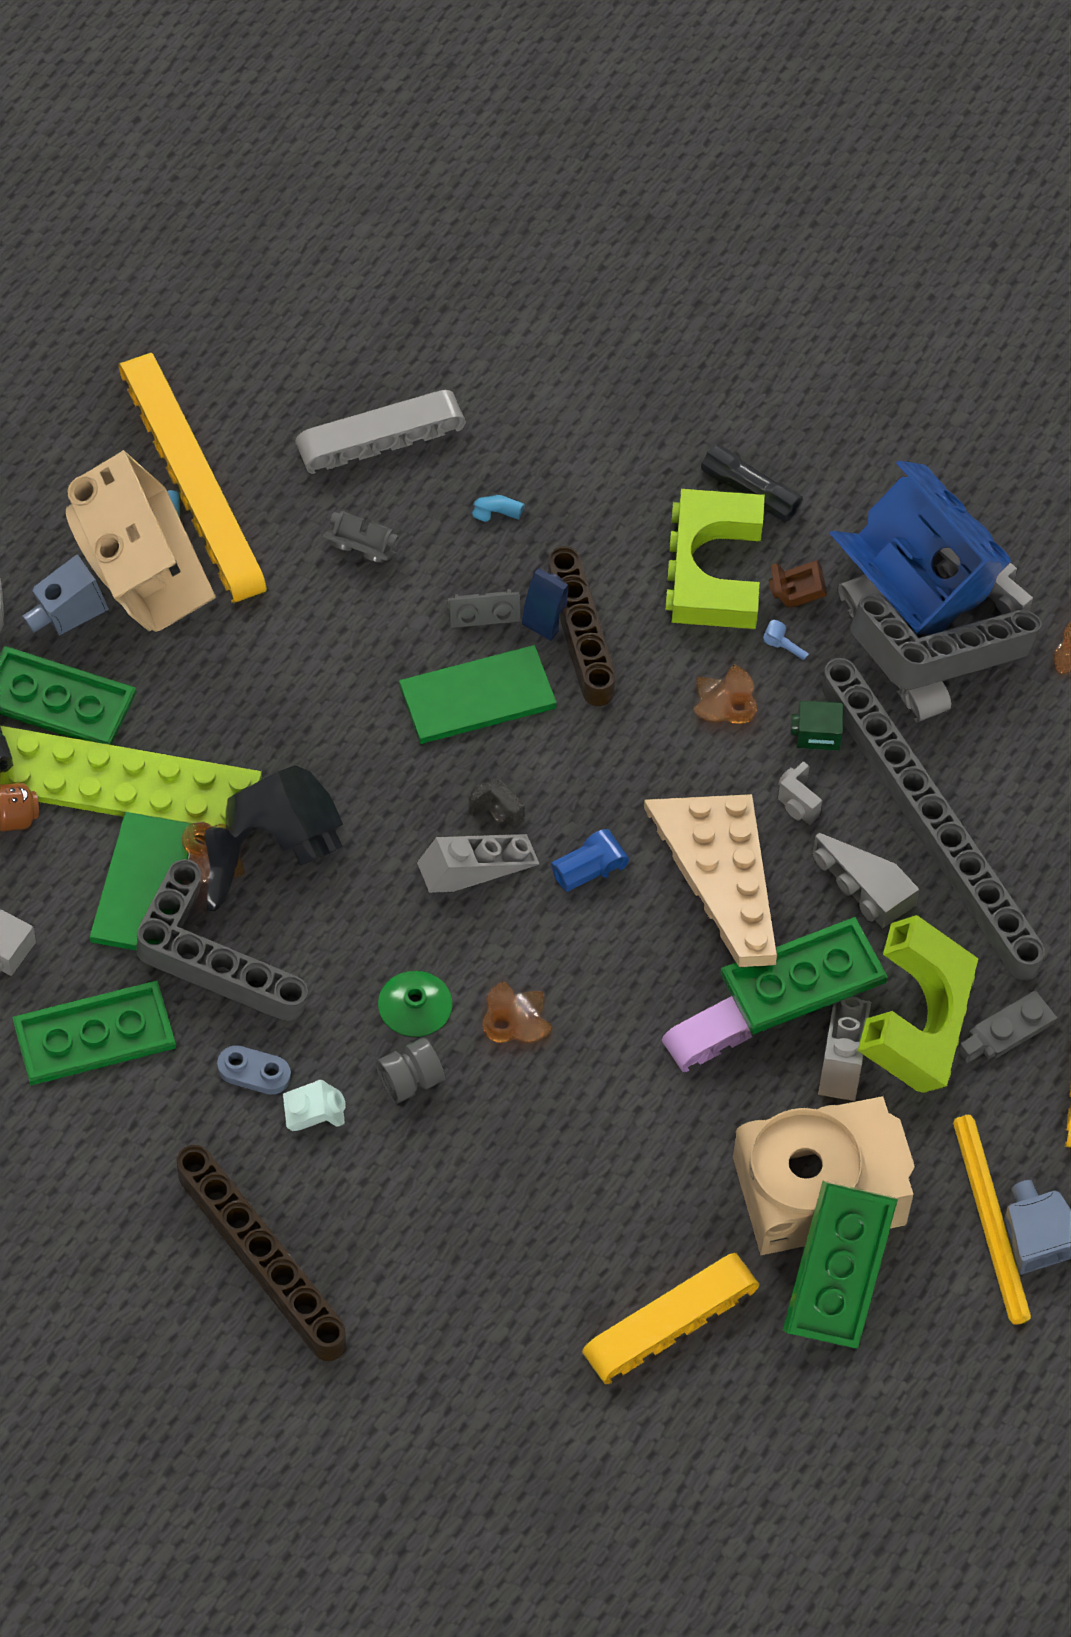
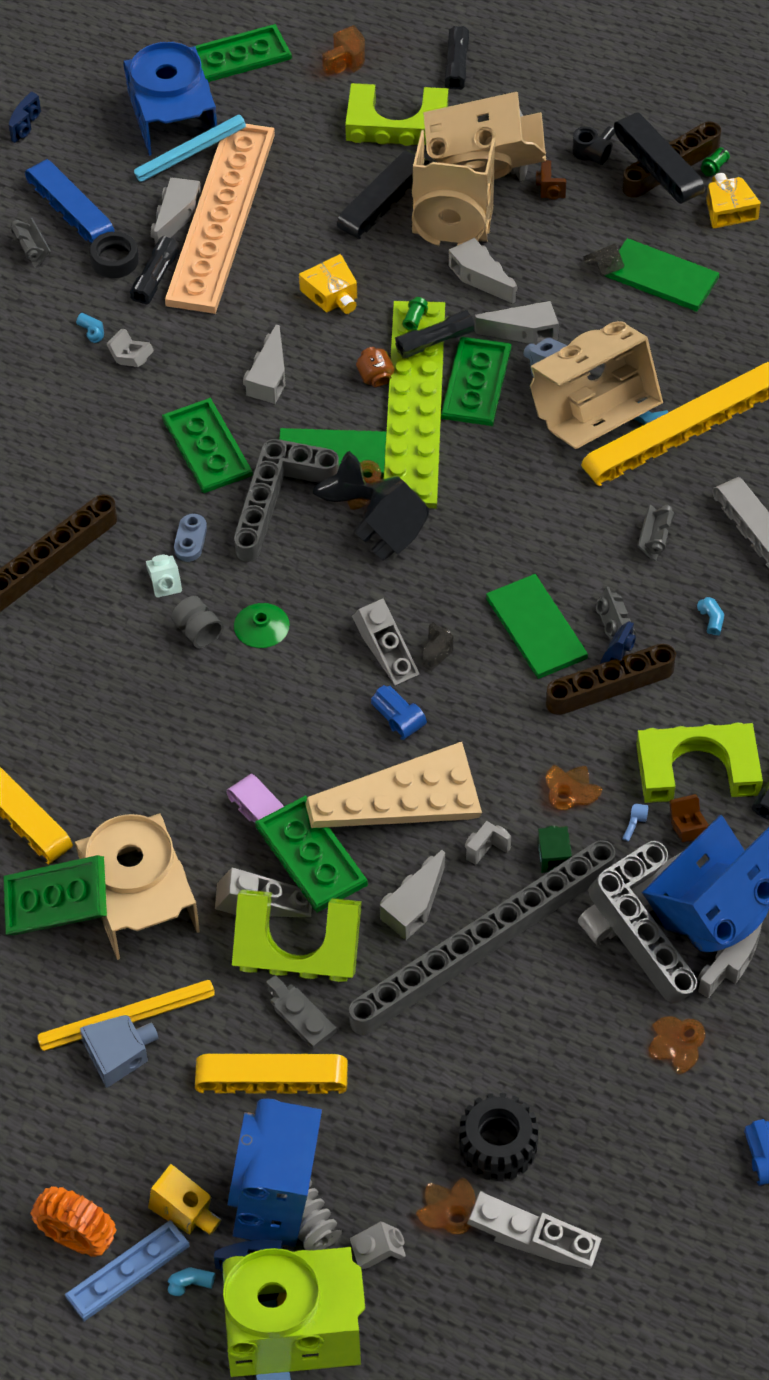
camera: 85 degrees right, 5 degrees down
(518, 1011) = (261, 687): clear orange plate -> none

